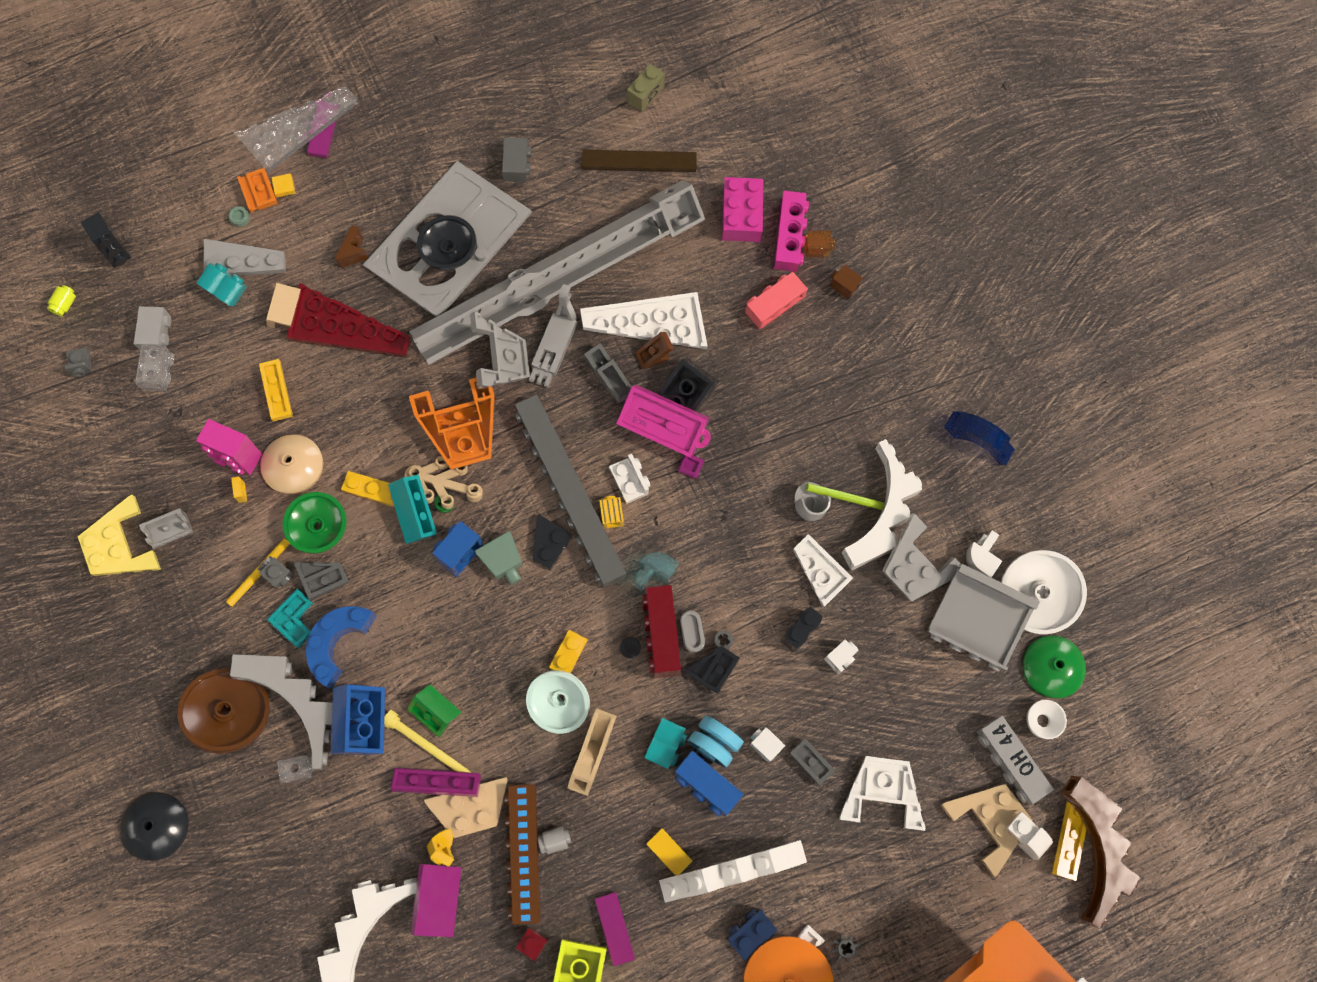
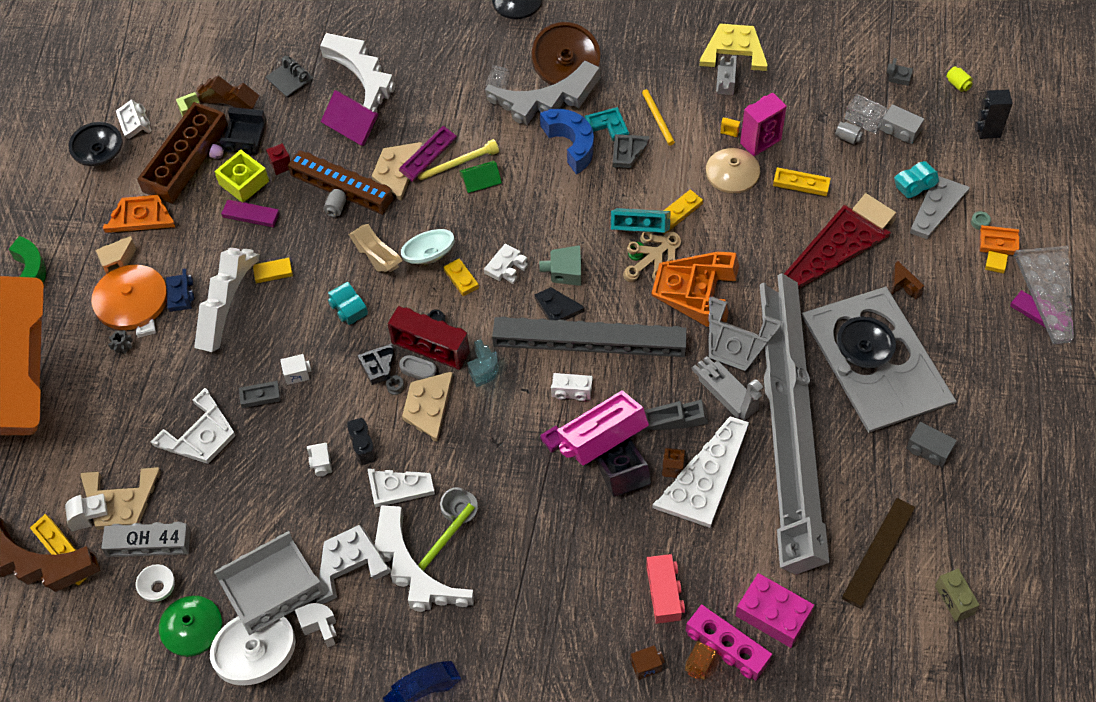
camera: 130 degrees right, 15 degrees down
(188, 373) = (849, 132): none -> light grey brick
(275, 572) = (648, 121): dark grey brick -> none
(308, 511) = (671, 151): green dish -> none
(358, 720) = (502, 122): blue brick -> none
(440, 848) = (380, 135): yellow plate -> none
(457, 548) = (589, 235): blue brick -> none
(528, 623) = (502, 262): none -> white plate
(611, 512) = (551, 356): yellow brick -> none
(707, 785) = (296, 309): blue brick -> none
(715, 742) = (322, 329): medium azure wheel -> none
(724, 598) = (427, 403): none -> tan wing

